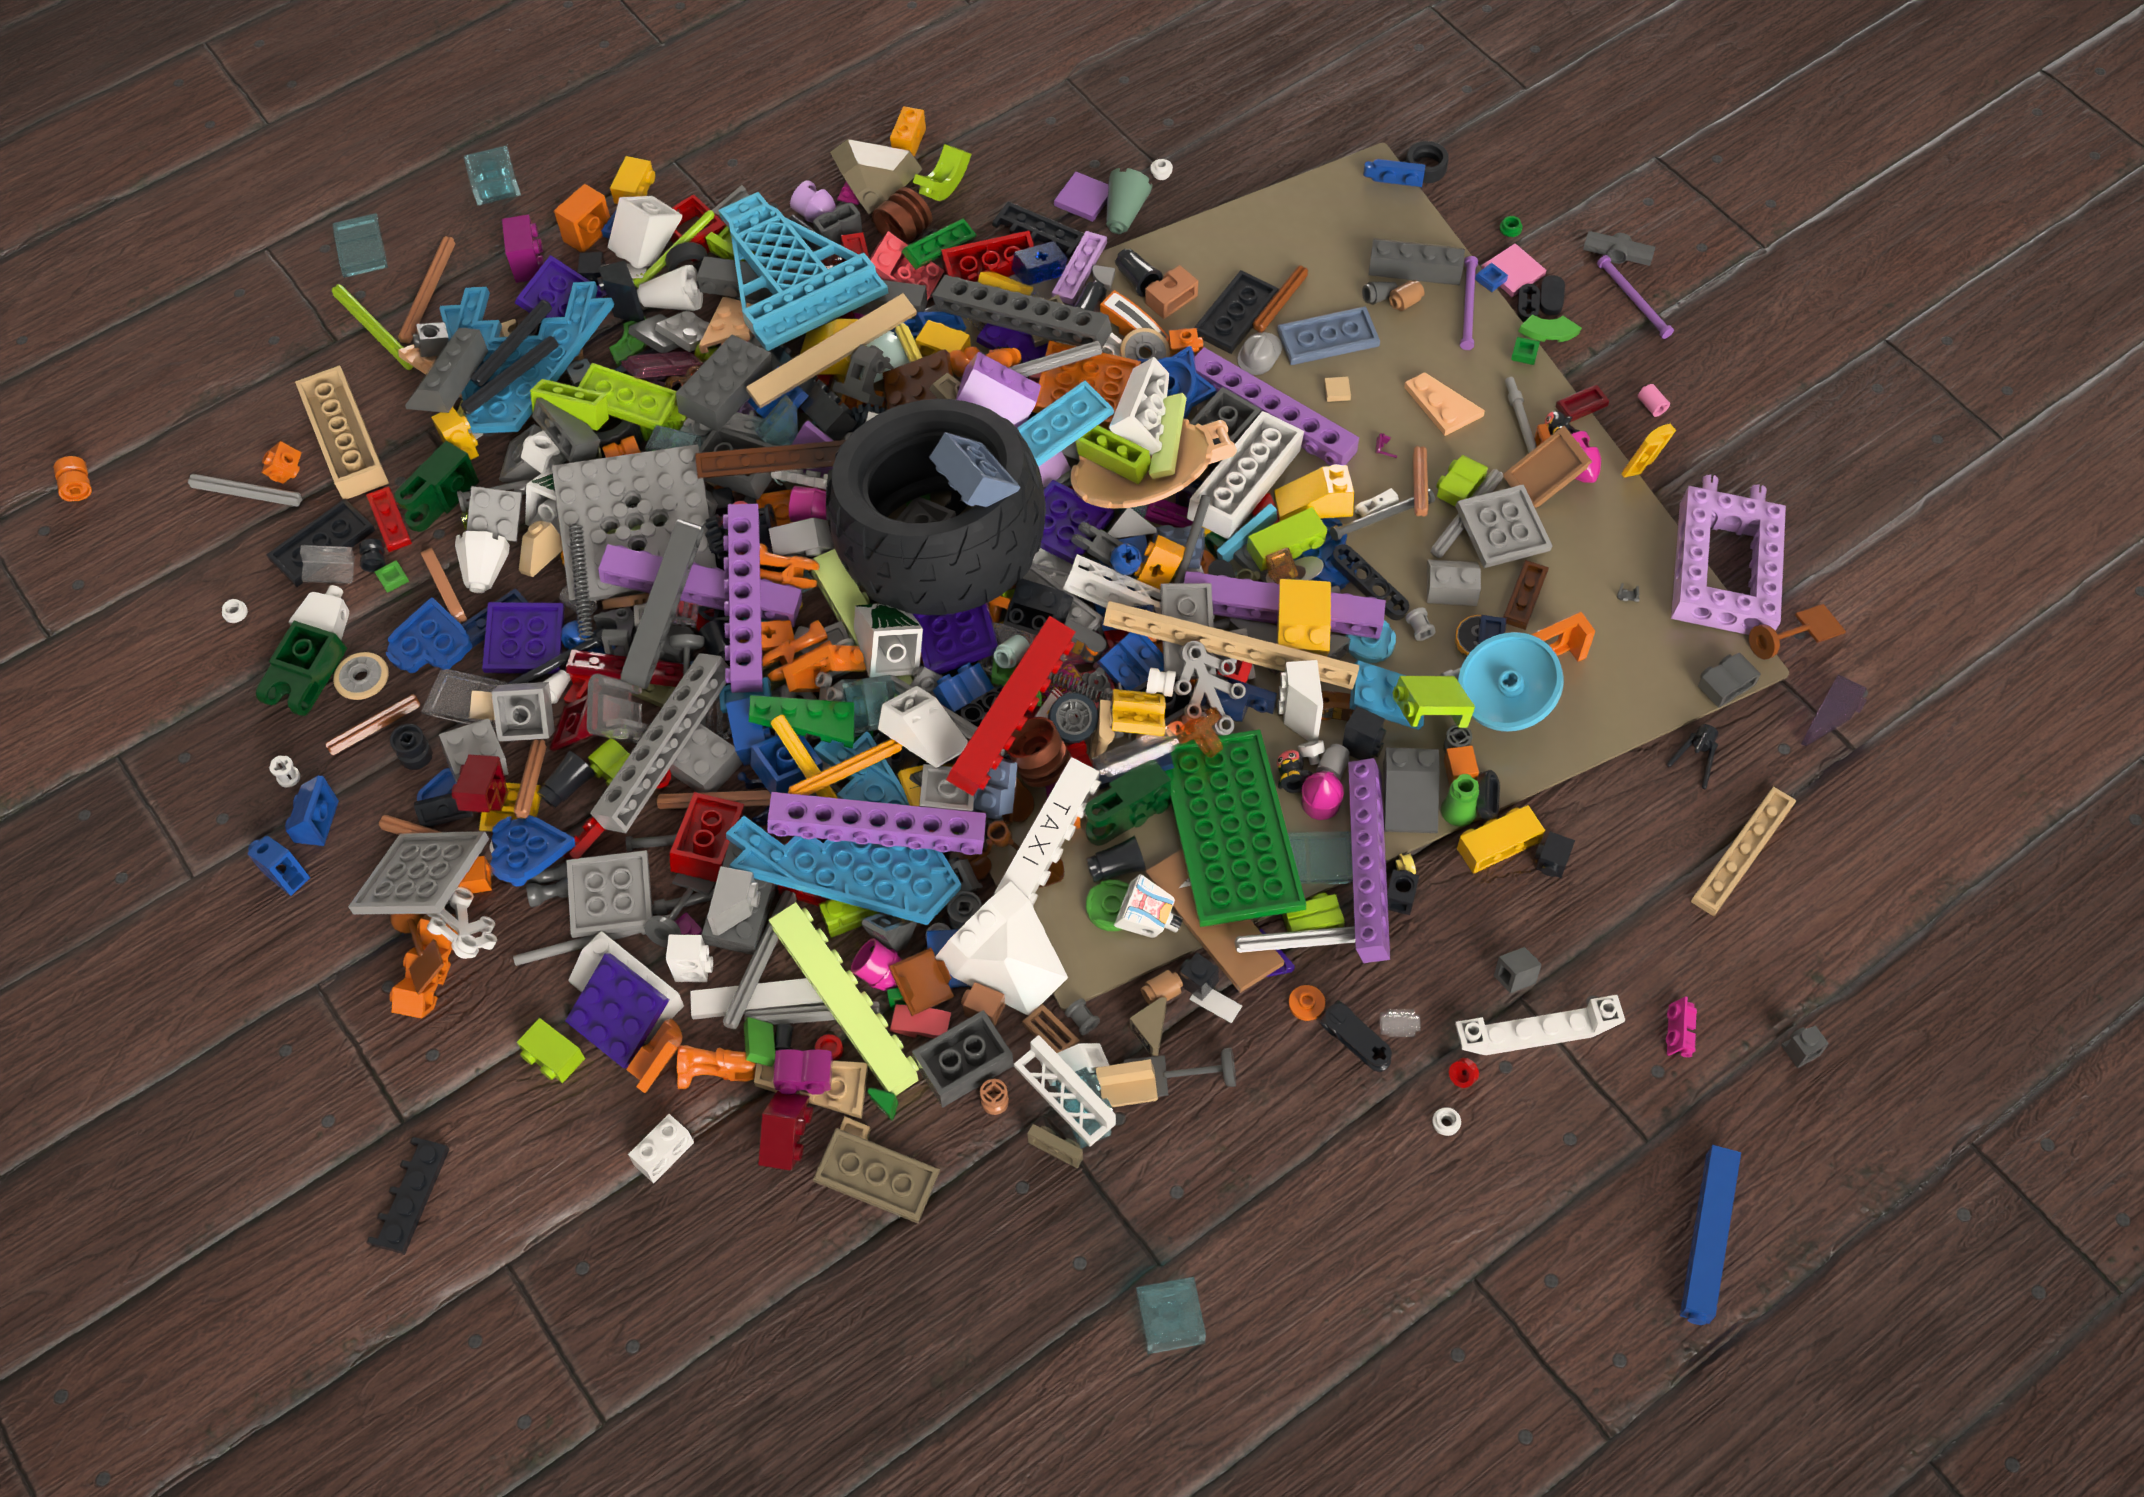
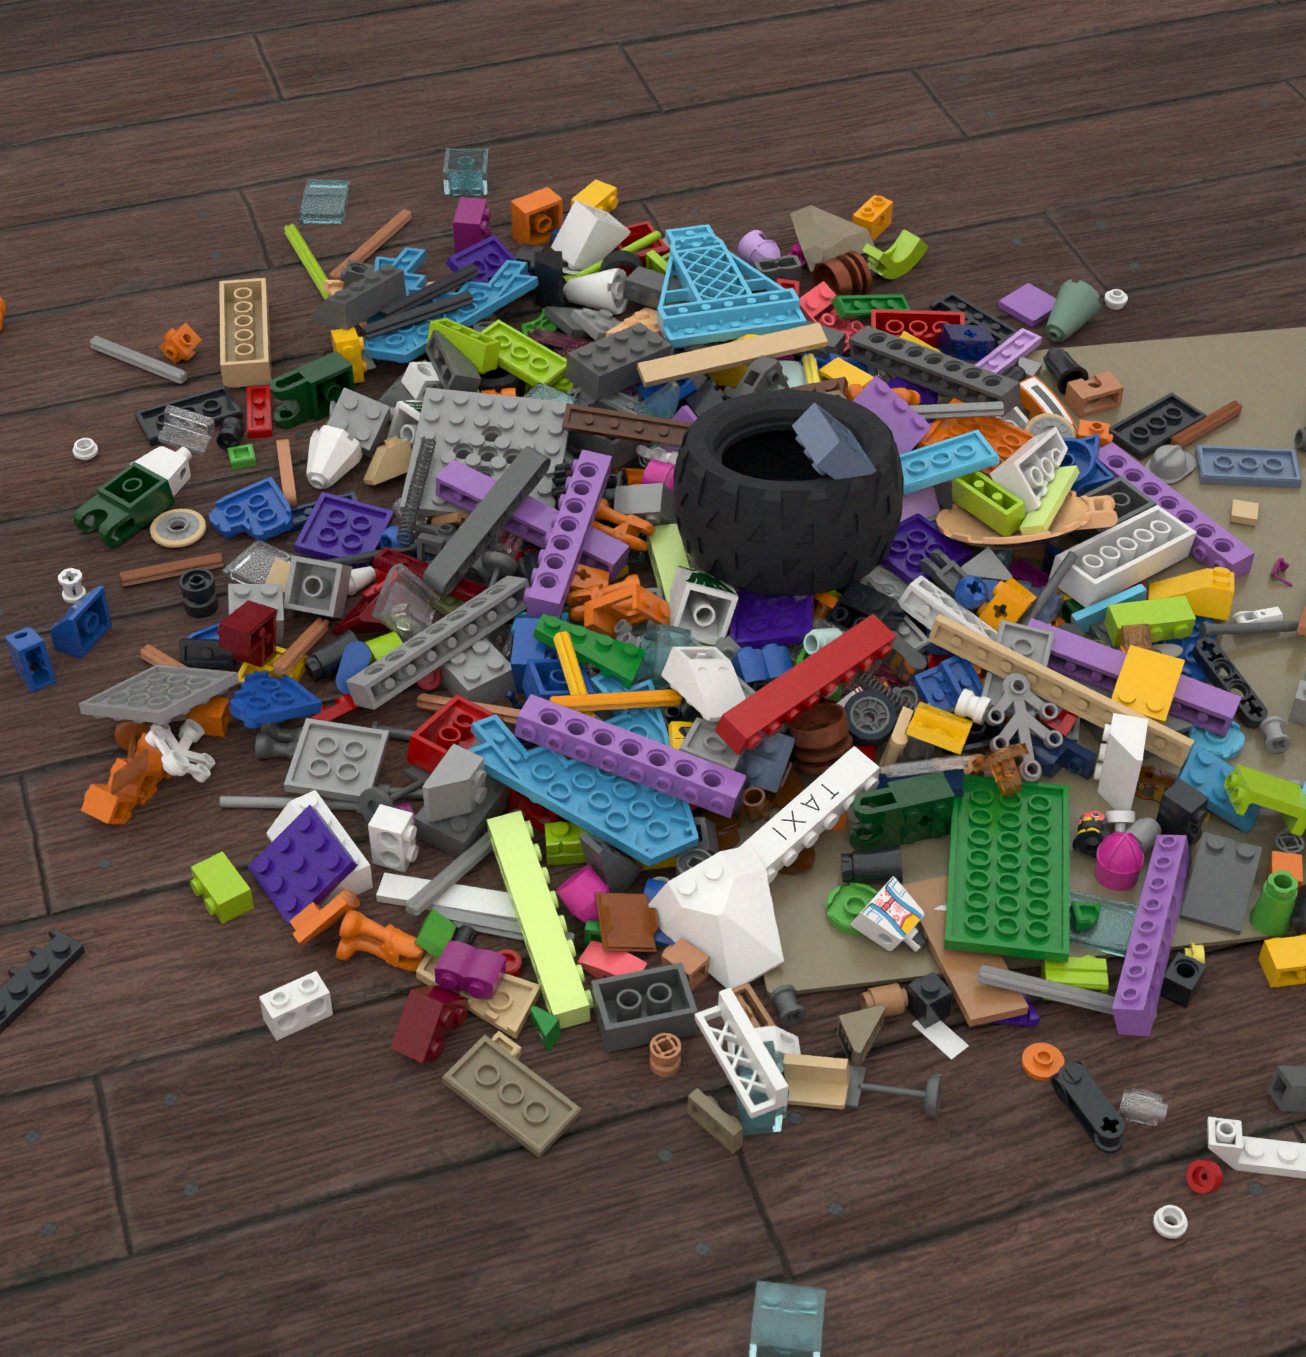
camera: 15 degrees right, 15 degrees down
(586, 787) = (353, 660): none -> blue tile
(1306, 855) = (1084, 914): none -> green tile

